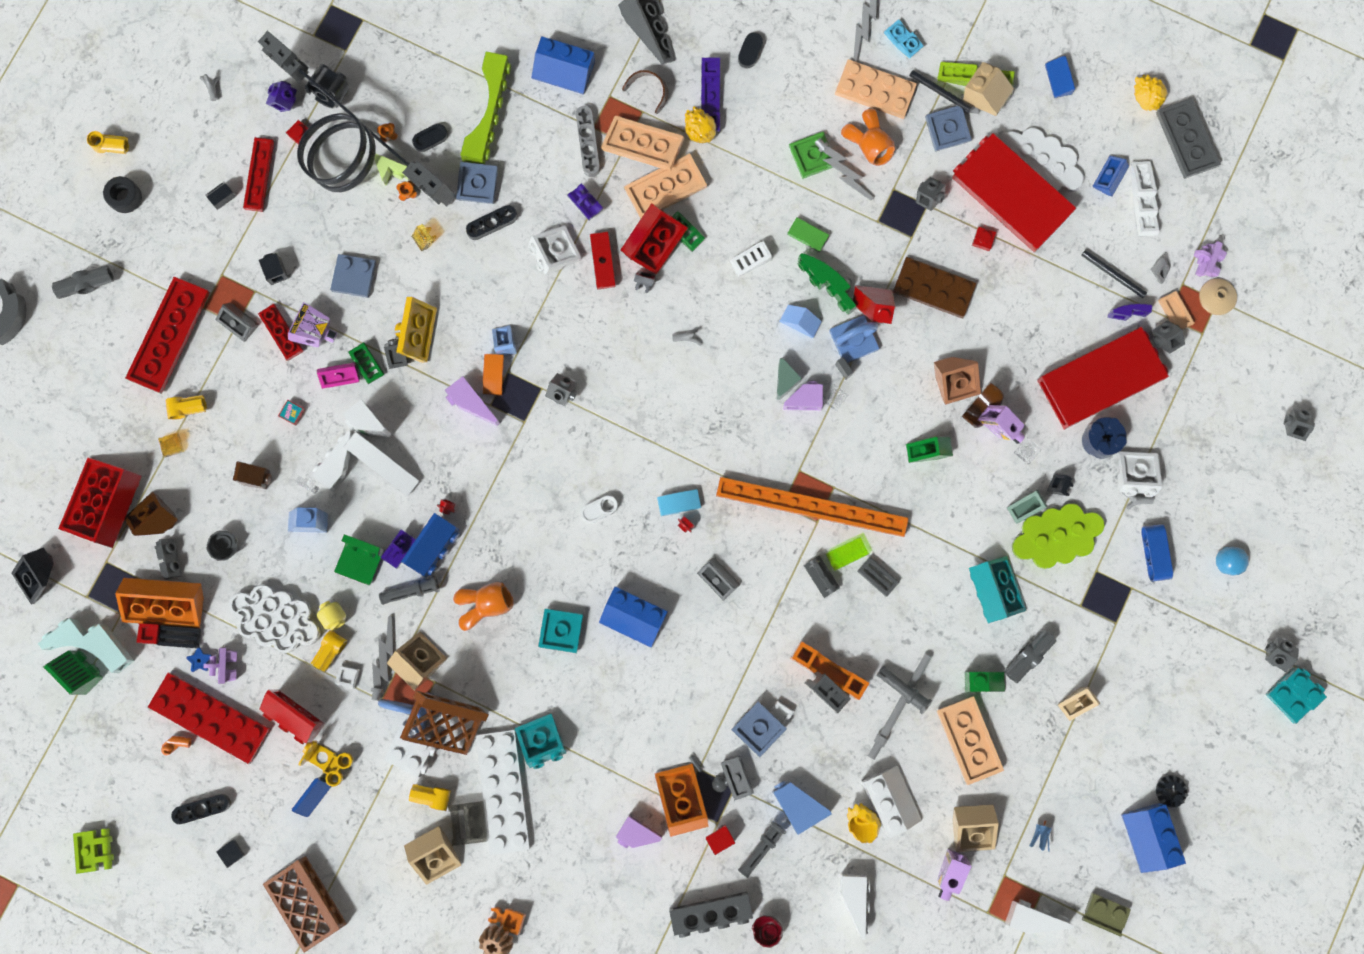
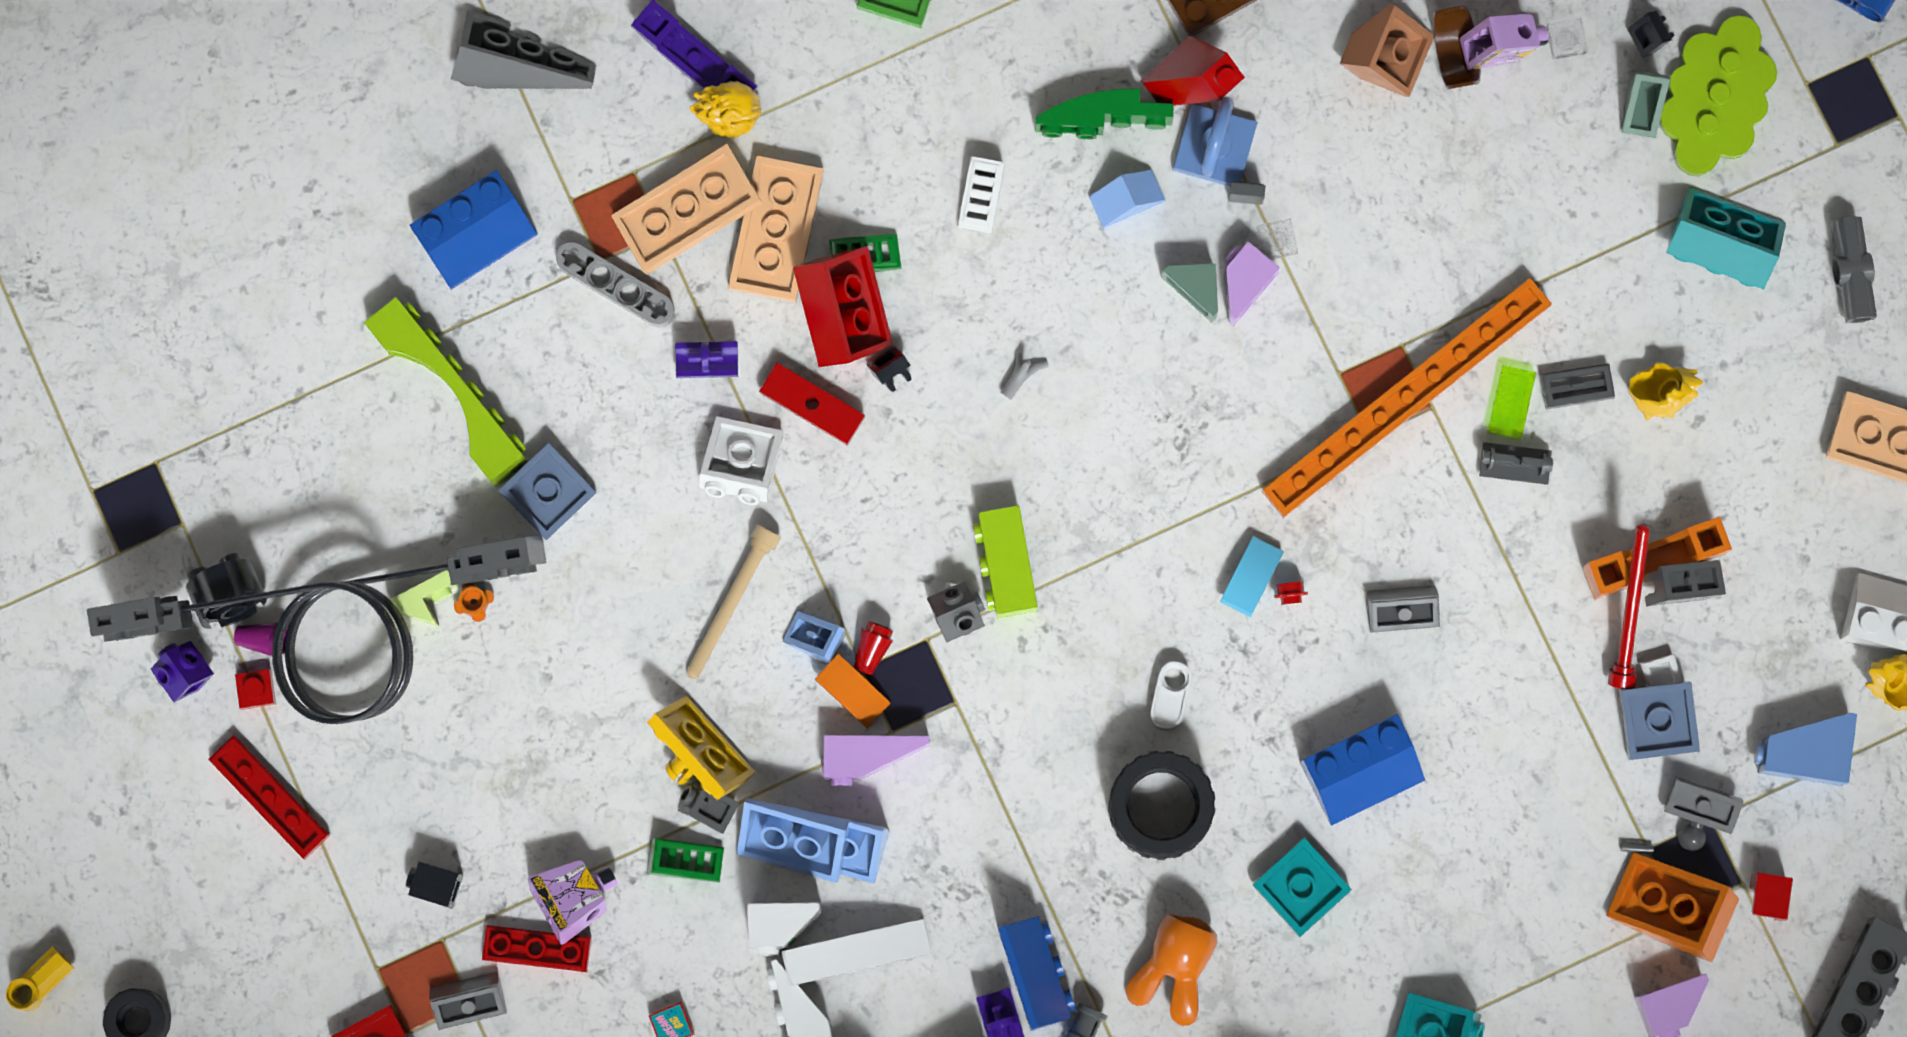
camera: 45 degrees left, 0 degrees up
(210, 86) = (74, 764): light grey bar -> none
(220, 195) = (255, 877): black piece -> none
(318, 113) = (257, 637): none -> magenta cone
(338, 375) = (673, 914): dark pink plate -> none
(353, 276) = (538, 778): sand blue plate -> none
(387, 128) = (358, 552): orange plate -> none
(414, 408) = (811, 842): none -> light blue slope
(422, 237) = (565, 632): clear yellow tile -> none
(430, 137) = (420, 505): black tile -> none
(446, 506) = (992, 909): red plate -> none
(489, 230) = (637, 494): black beam -> none
(519, 367) = (872, 646): none -> red cone
(526, 287) = (762, 543): none -> tan piece
(530, 525) = (1172, 764): none -> black tyre
(600, 394) = (1006, 562): none -> lime brick
(641, 73) = (606, 108): piece -> none
(766, 696) = (1622, 673): none -> red piece
(767, 841) = (1824, 834): dark grey pin -> none
(808, 234) = (1010, 86): bright green tile -> none
(881, 739) = (1805, 566): light grey bar -> none
(906, 614) = (1663, 389): none -> yellow hair
(912, 695) = (1780, 473): dark grey pin -> none
(929, 449) = (1457, 170): green slope -> none
(984, 682) = (1838, 361): green slope -> none

